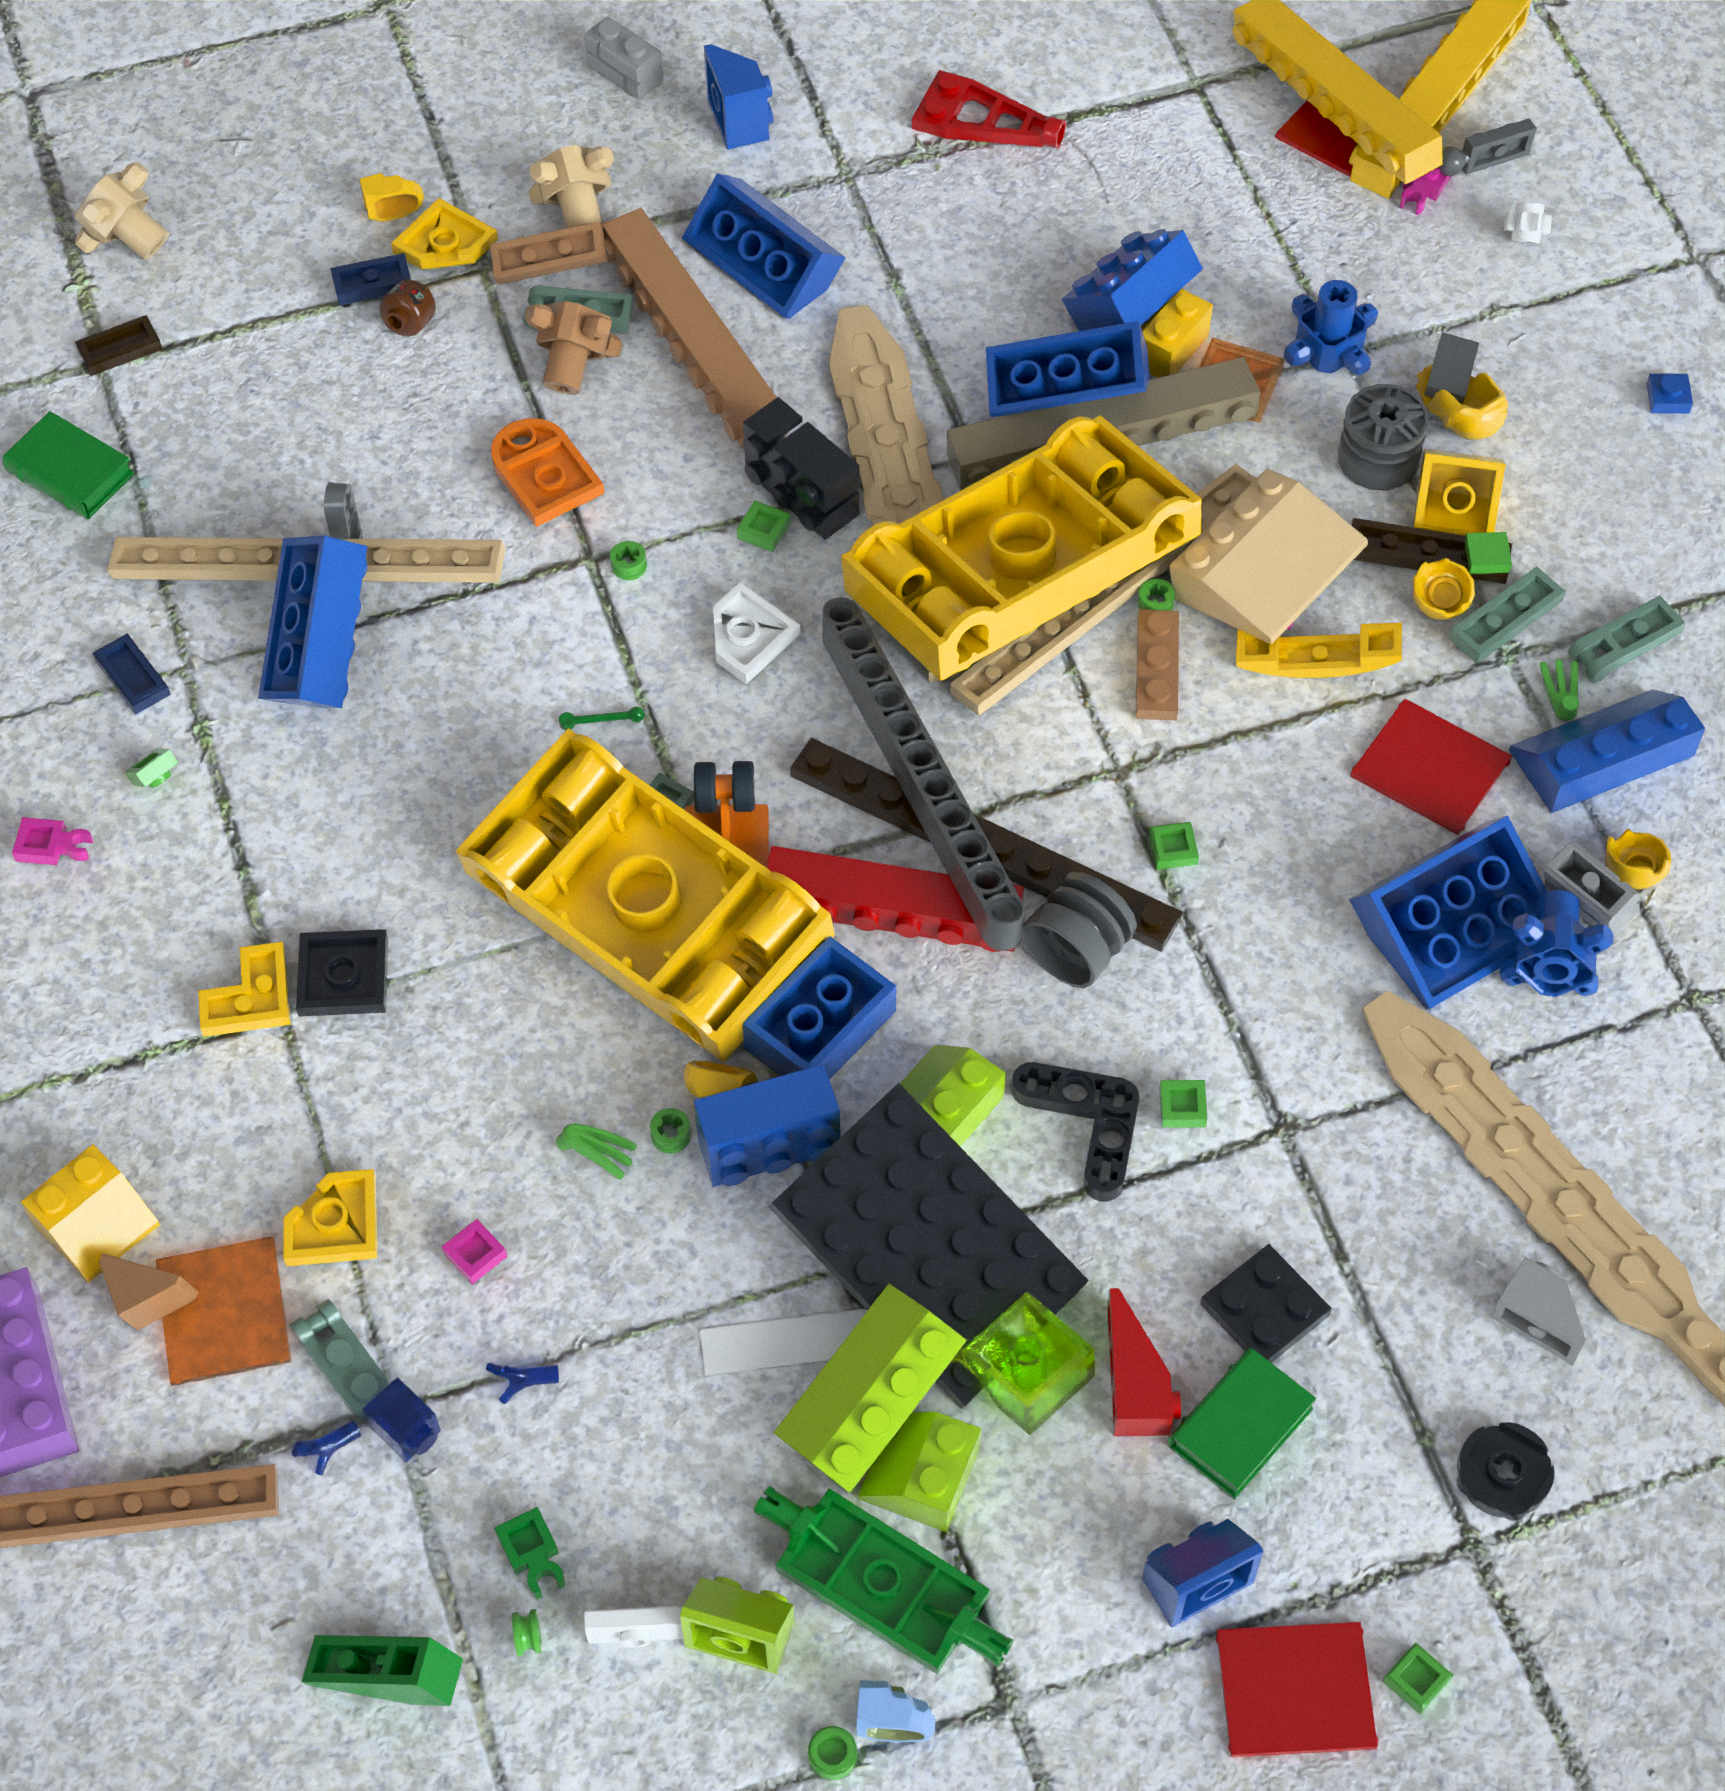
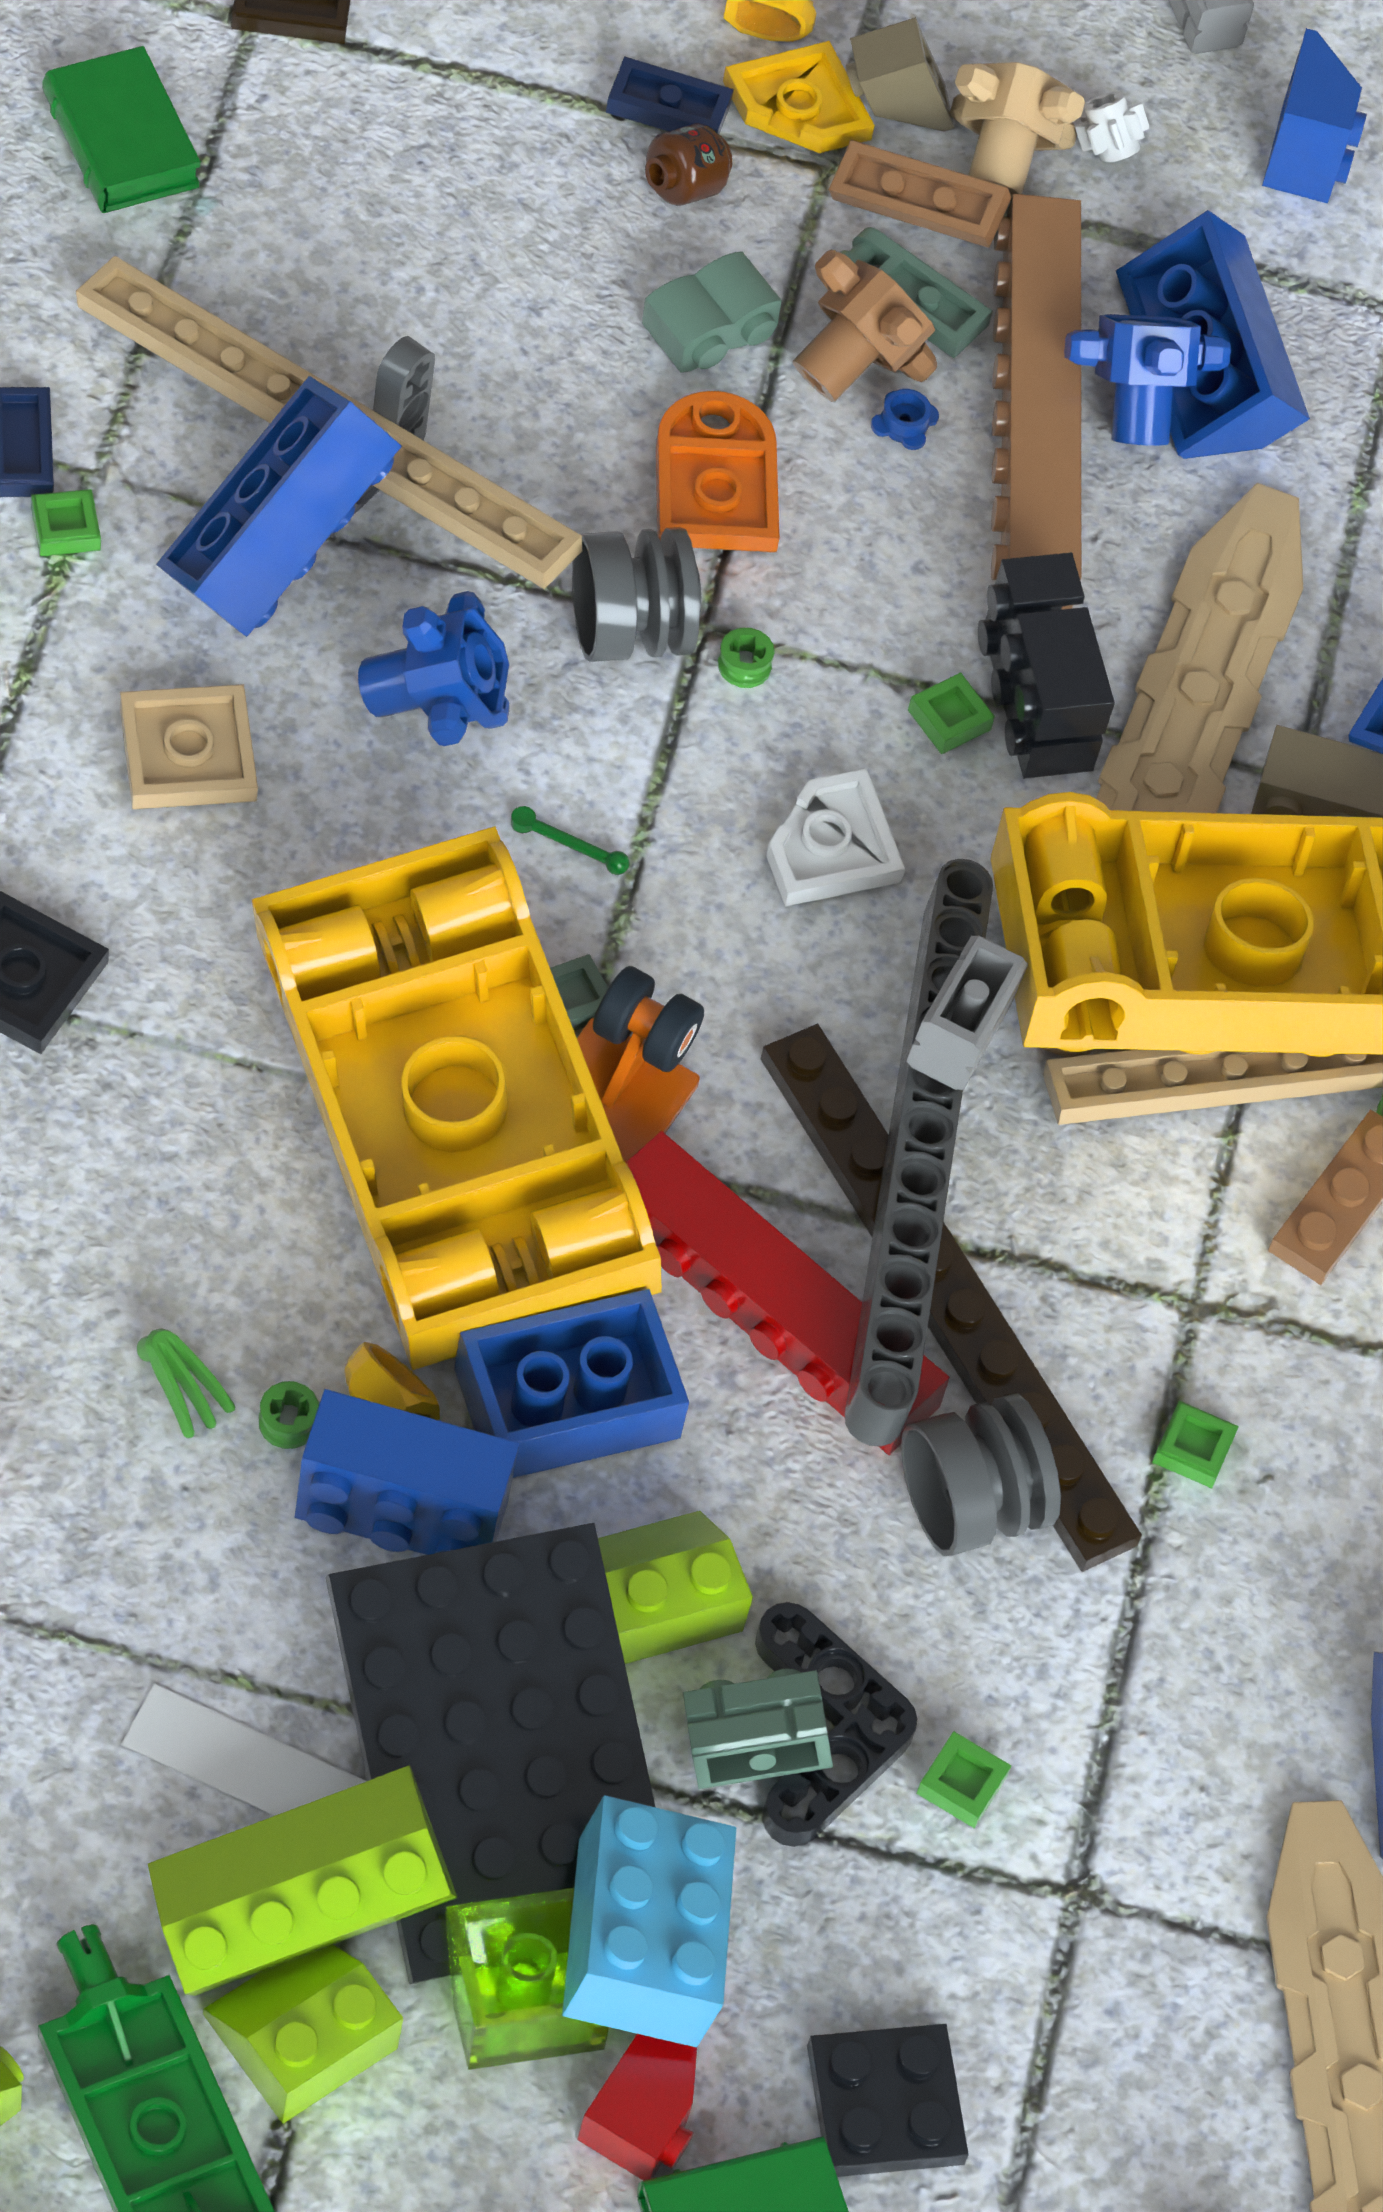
camera: 20 degrees right, 0 degrees up
(189, 704) = (65, 522): none -> bright green tile
(350, 789) = (188, 746): none -> tan plate
(472, 659) = (449, 670): none -> blue piece
(478, 381) = (712, 312): none -> sand green brick
(493, 194) = (900, 76): none -> dark tan slope
(549, 558) = (647, 594): none -> dark grey wheel
(624, 380) = (908, 406): none -> blue plate
(629, 160) = (1112, 127): none -> white gear
(741, 275) = (1146, 362): none -> blue piece
(901, 678) = (967, 1012): none -> light grey brick
(1056, 1144) = (757, 1728): none -> sand green brick
(1083, 1286) = (650, 1921): none -> medium azure brick

